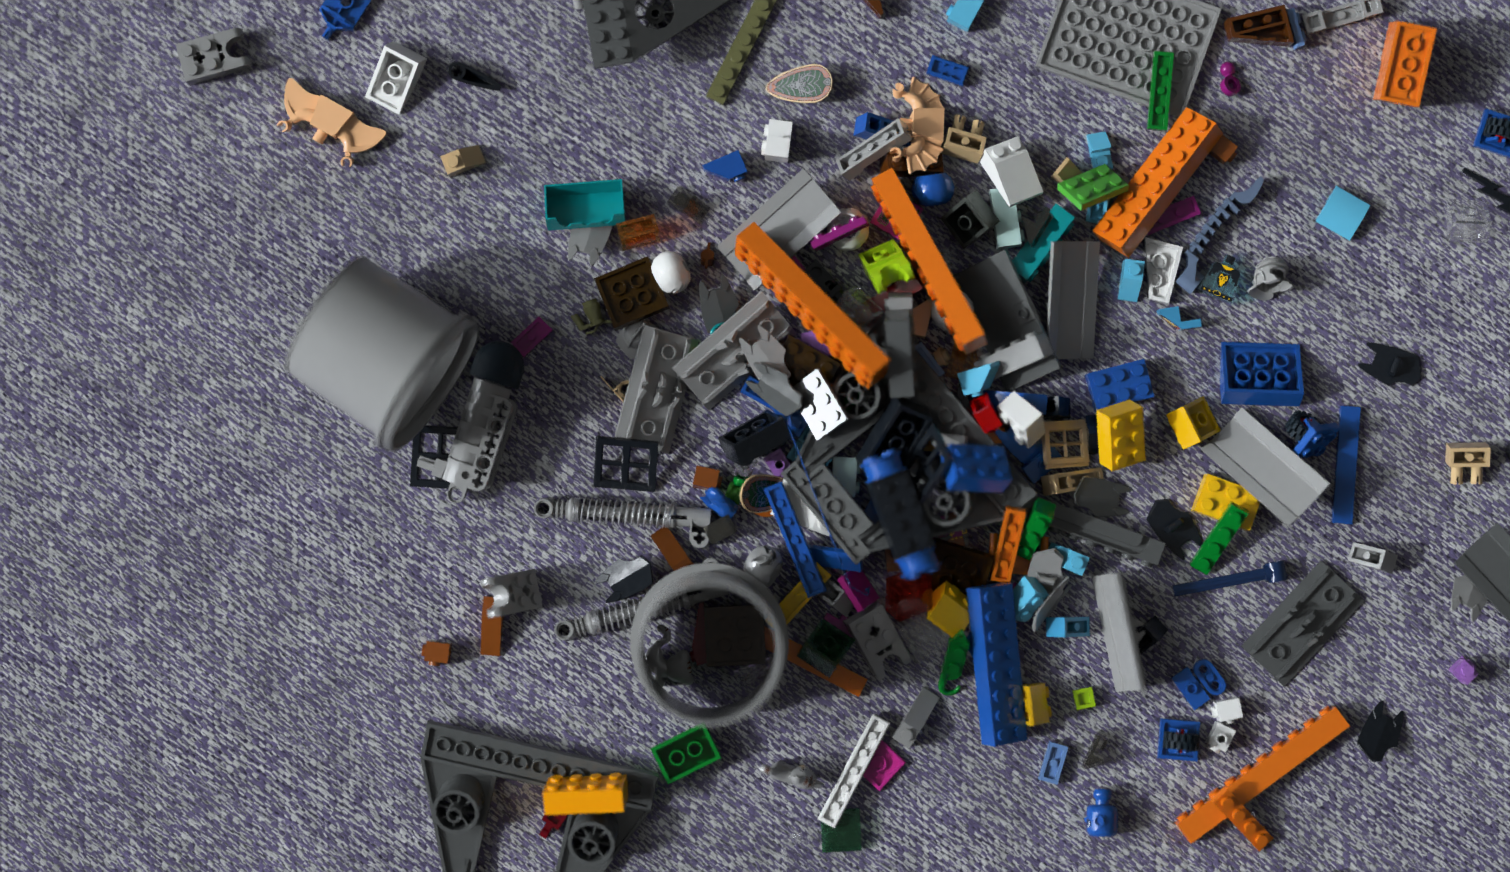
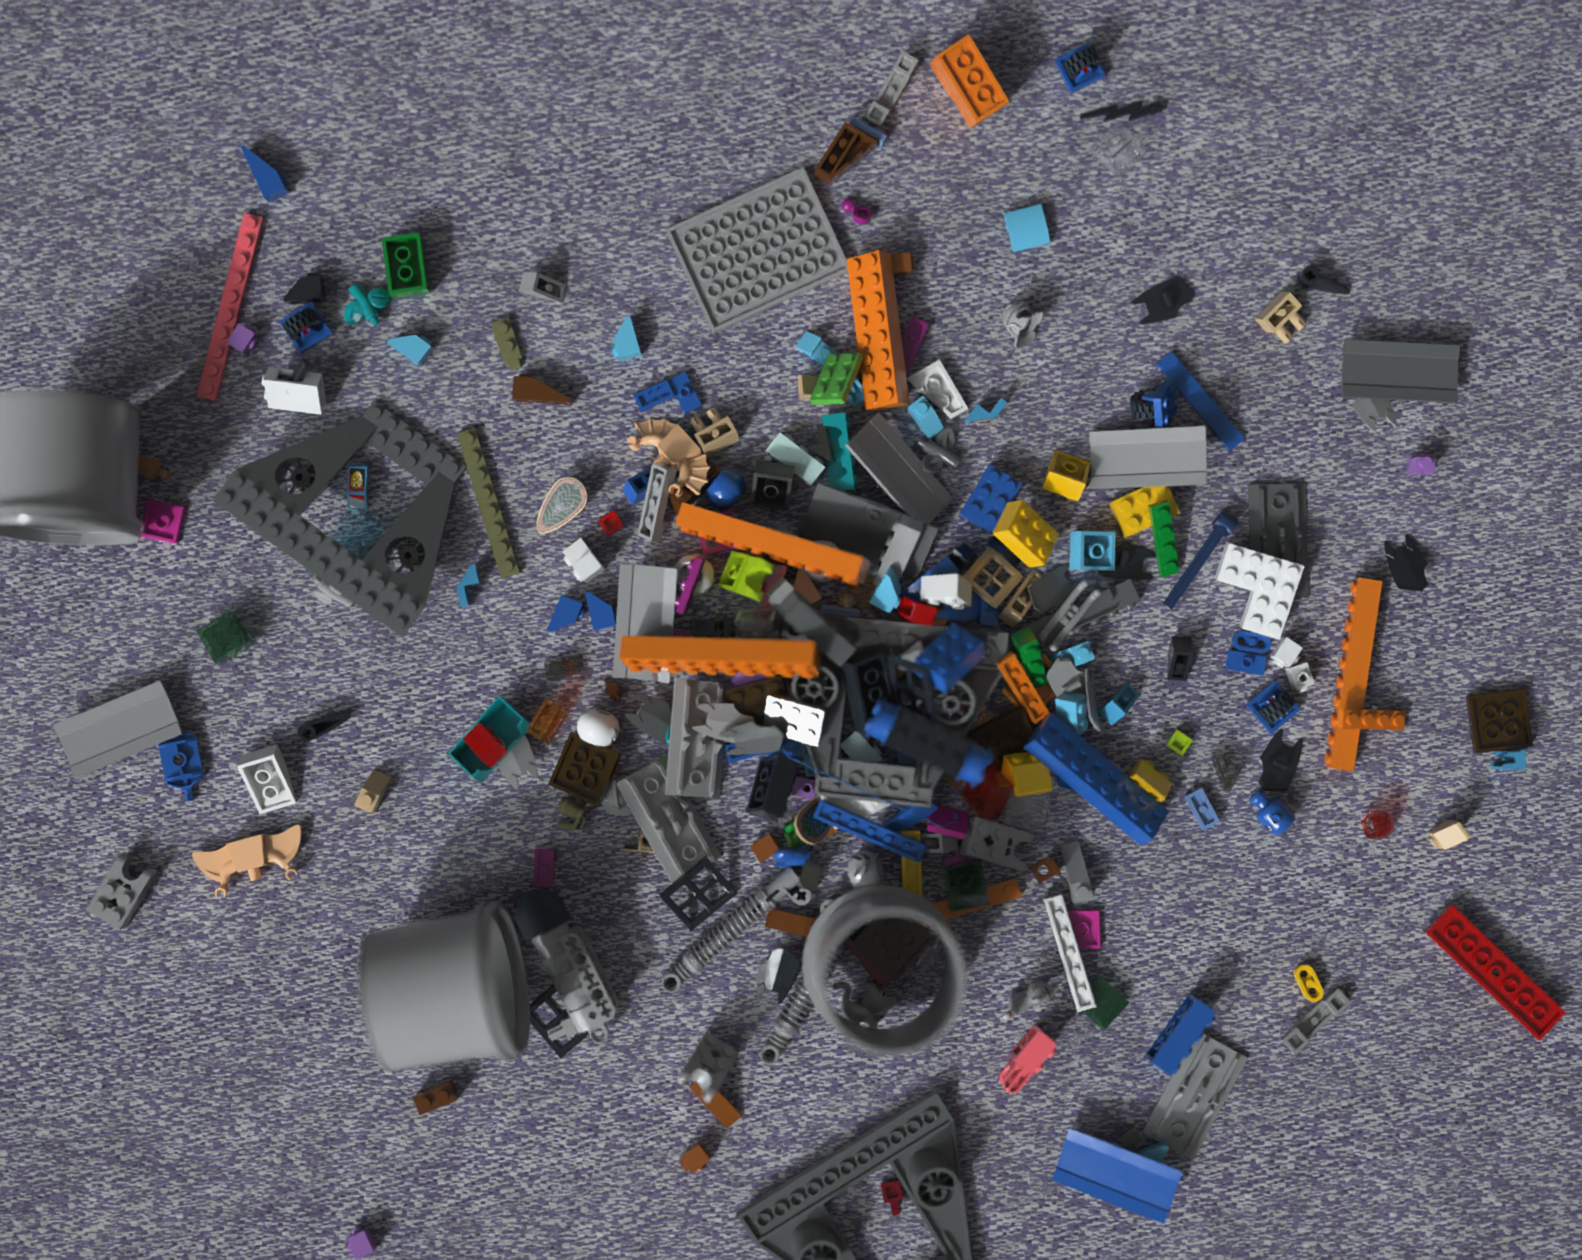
camera: 50 degrees left, 0 degrees up
(138, 476) = (360, 1242): none -> medium lavender brick
(293, 425) = (435, 1097): none -> reddish brown brick
(578, 205) = (485, 744): none -> red brick
(585, 794) = (899, 1157): light orange brick -> none
(683, 74) = (471, 578): none -> dark azure slope
(685, 752) = (940, 1061): green brick -> none
(747, 816) = (1027, 1059): none -> coral brick
(753, 193) = (601, 613): none -> blue slope
(825, 133) = (611, 523): none -> red plate
(902, 698) = (1052, 865): none -> reddish brown bracket
(953, 662) = (1064, 807): green plate -> none
(972, 90) = (685, 393): none -> blue plate
(1012, 171) = (768, 422): white slope -> none
(1094, 525) = (1068, 614): none -> light grey piece
(1116, 314) = (939, 451): none -> dark grey plant
(1119, 632) = (1160, 672): light grey hinge -> none
(1142, 786) = (1279, 764): none -> black shield
(1158, 496) = (1092, 550): none -> medium azure slope
(1160, 91) = (817, 265): green plate -> none
(1191, 277) = (964, 375): sand blue piece -> none
(1221, 280) = (988, 357): torso -> none
(1261, 374) = (1080, 395): blue slope -> none
(1266, 644) = (1271, 587): none -> white piece
(1372, 557) = (1282, 448): light grey slope -> none

